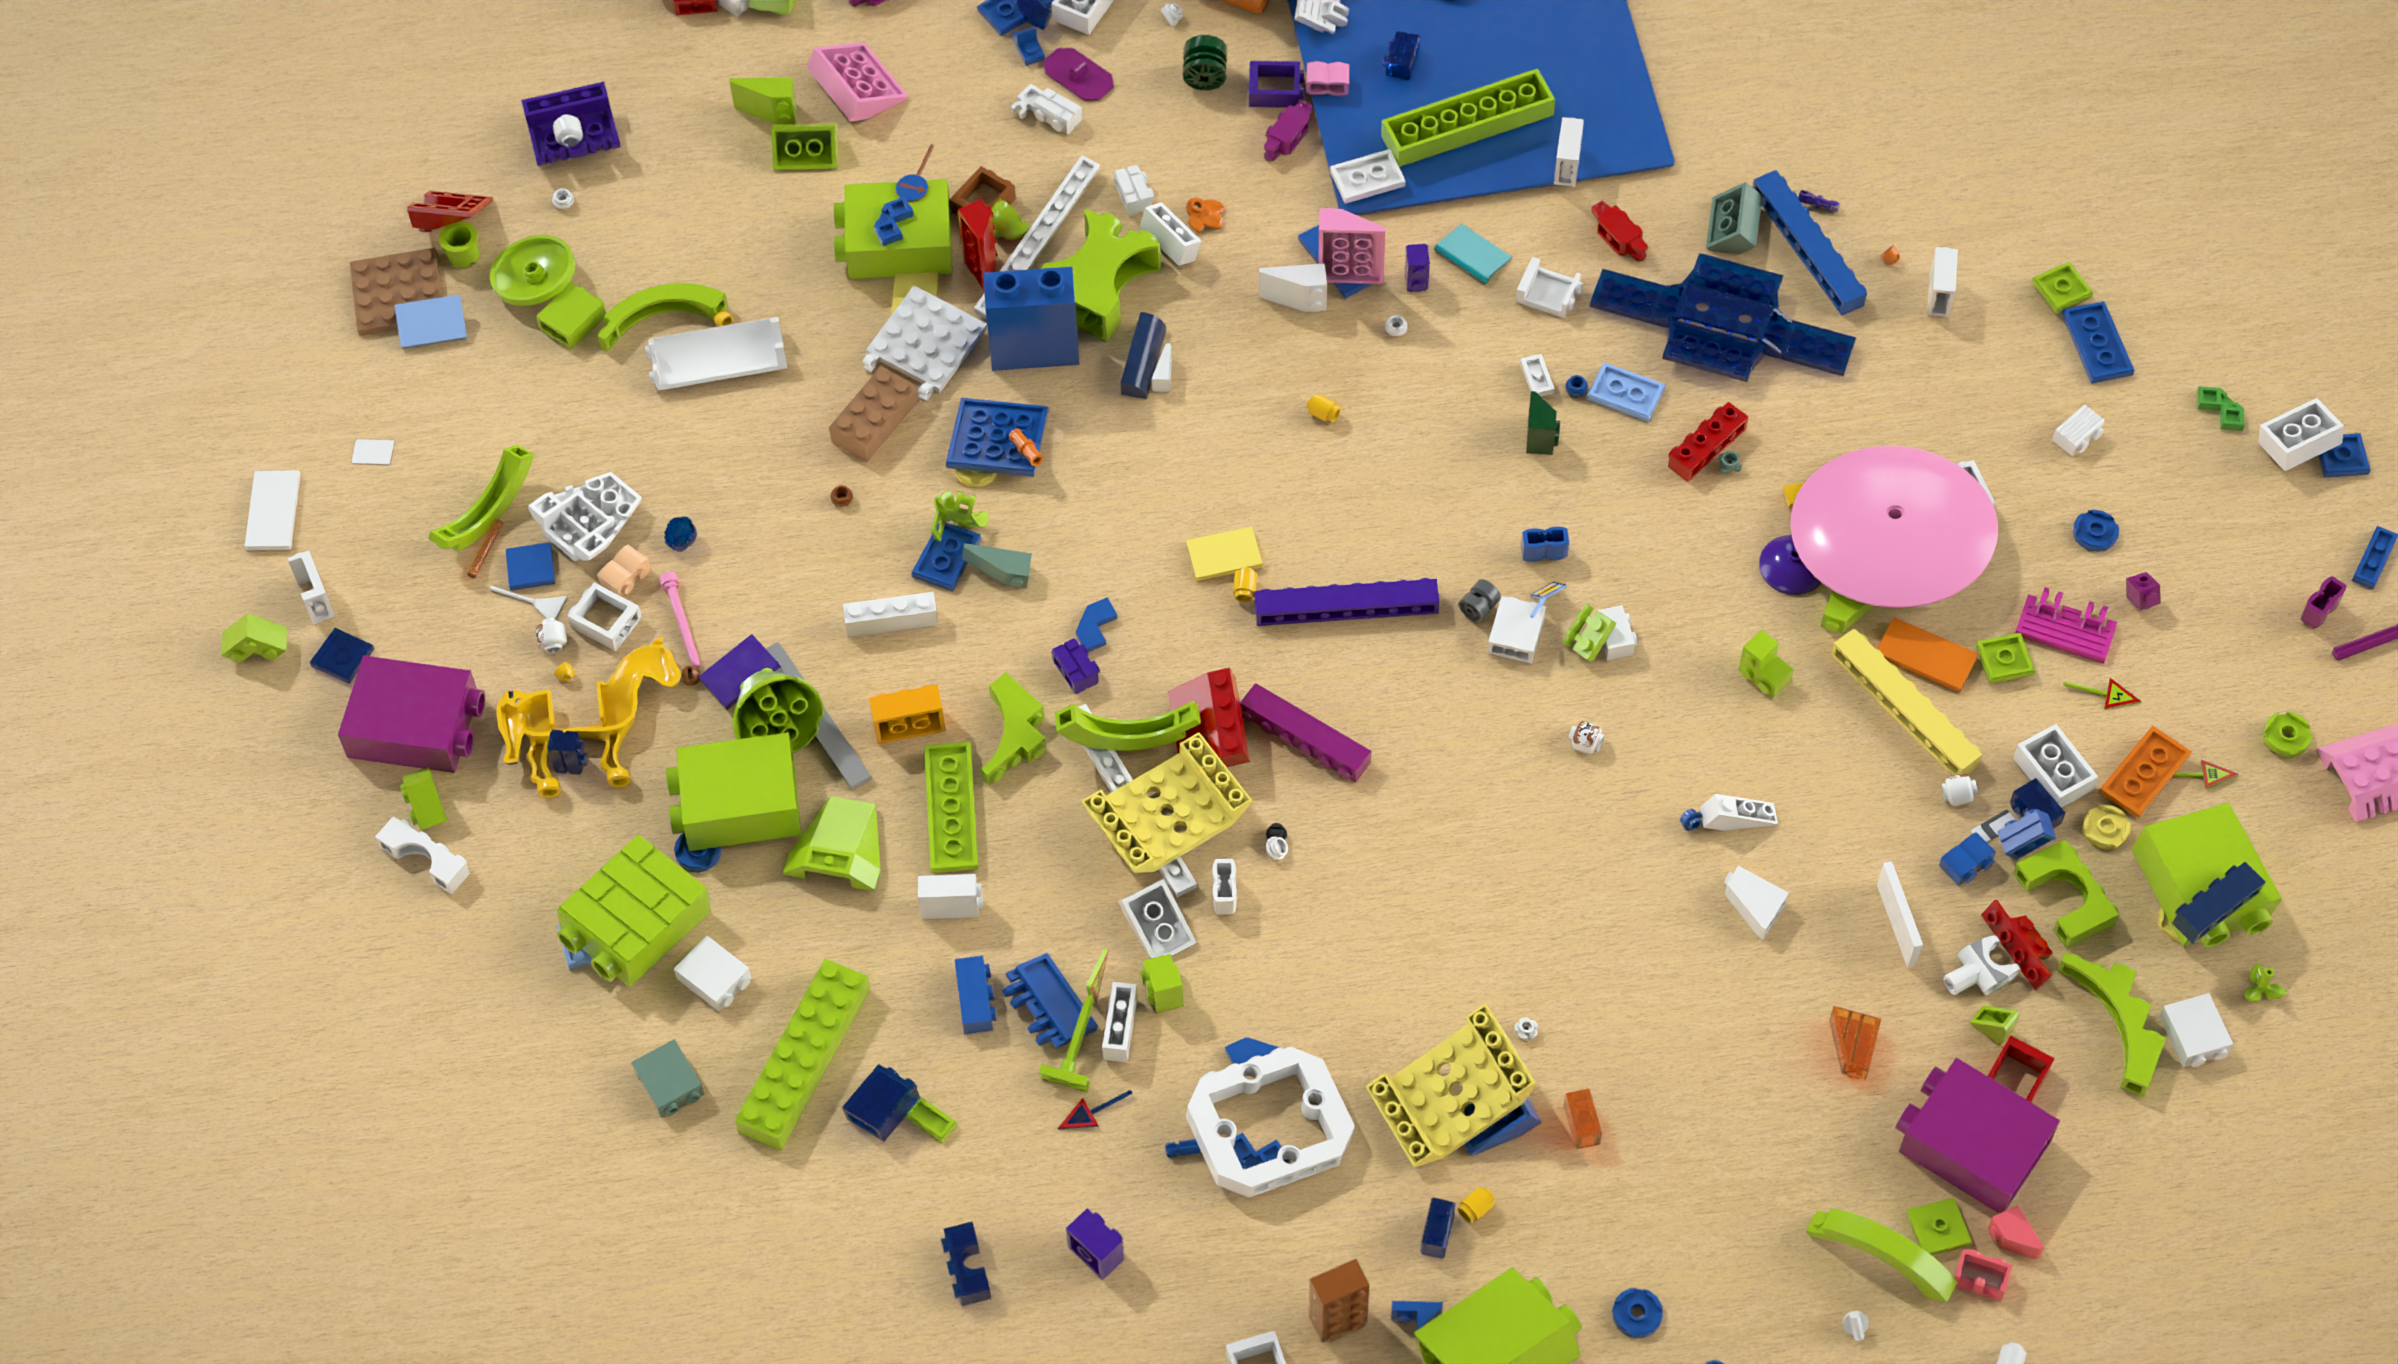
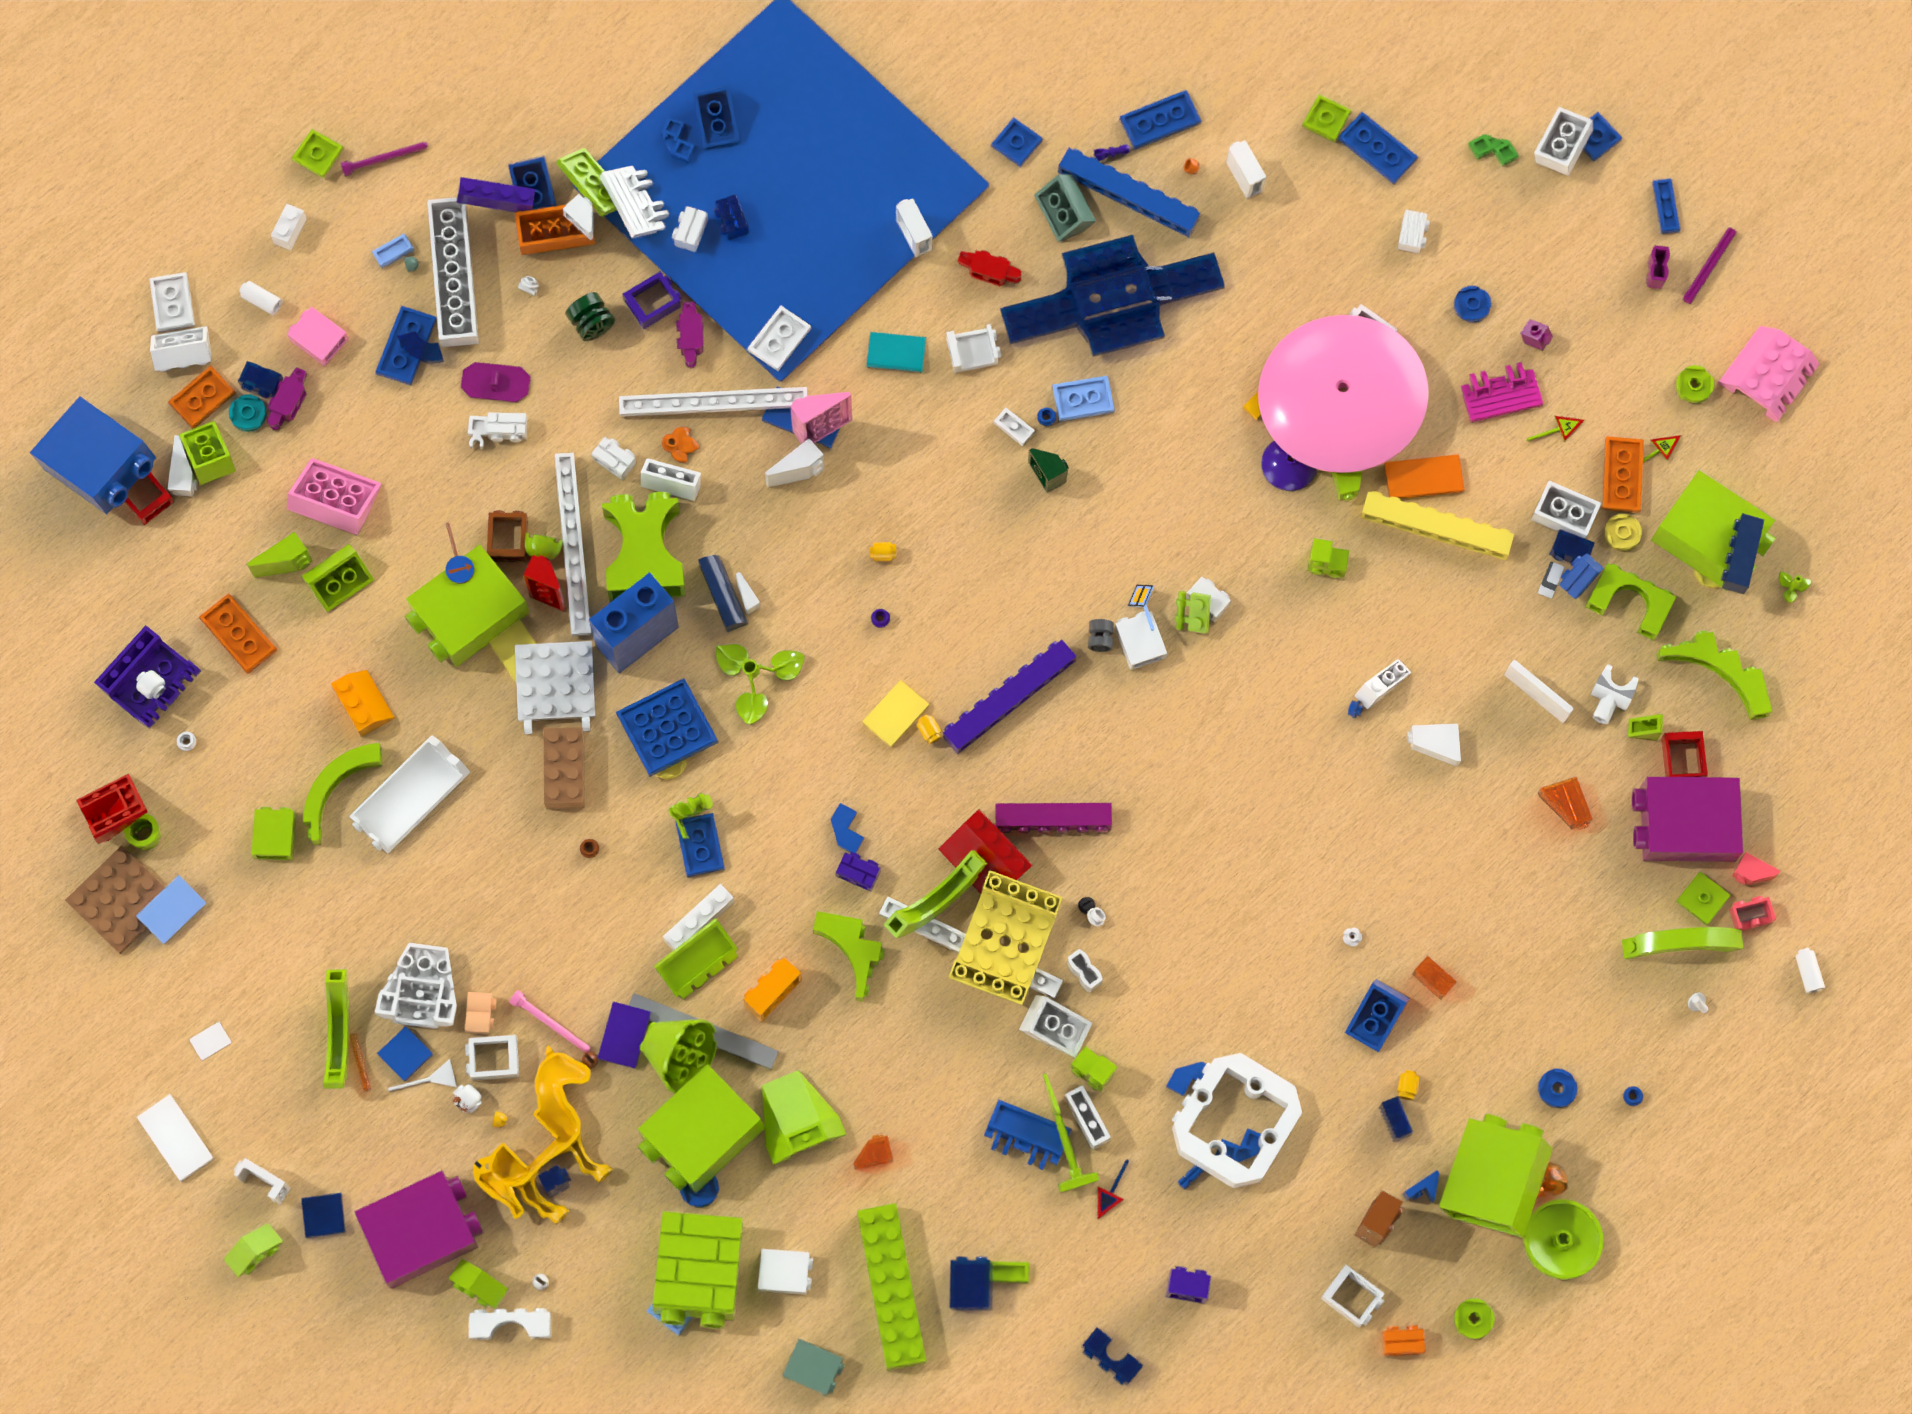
camera: 40 degrees left, 15 degrees up
(489, 837) = (537, 1285): none -> white hinge
(532, 270) = (216, 817): lime dish -> none
(680, 533) = (497, 957): clear blue hair -> none
(681, 142) = (238, 633): none -> orange tile
(723, 318) = (389, 763): yellow hinge -> none
(740, 255) = (362, 701): none -> light orange slope
(858, 645) = (695, 958): none -> lime hinge
(886, 226) = (466, 614): blue tile -> none
(886, 923) = (875, 1152): none -> clear orange slope
(949, 896) = (906, 1106): white brick -> none
(951, 807) = (851, 1036): lime plate -> none
(975, 994) = (973, 1163): blue brick -> none
(1003, 565) = (750, 828): sand green slope -> none
(1026, 447) = (699, 725): orange pin -> none
(1028, 46) = (438, 381): blue slope -> none
(1109, 419) = (734, 657): none -> lime plant
(1246, 186) = (709, 401): none -> white plate
(1275, 458) = (880, 612): none -> dark purple plate
(1327, 78) = (691, 272): bright pink brick -> none
(1356, 43) = (690, 228): none -> white brick
(1393, 321) = (885, 444): white plate -> none
(1417, 267) = (871, 394): dark purple brick -> none
(1421, 1101) = (1335, 1044): light yellow slope -> none
(1468, 117) = (819, 243): lime brick -> none
(1542, 544) = (1119, 559): blue brick -> none
(1586, 737) = (1244, 693): white head -> none
(1707, 441) = (1169, 404): red brick -> none
(1729, 456) = (1193, 404): sand green plate -> none
(1730, 145) = (1016, 142): none -> blue tile
(1889, 201) = (1160, 119): none -> blue tile
(1959, 789) = (1513, 569): white head -> none
(1967, 859) = (1552, 617): blue brick -> none
(2005, 658) = (1477, 446): lime plate -> none
(2021, 942) = (1625, 657): red bracket -> none
(2196, 1030) = (1774, 648): white brick -> none

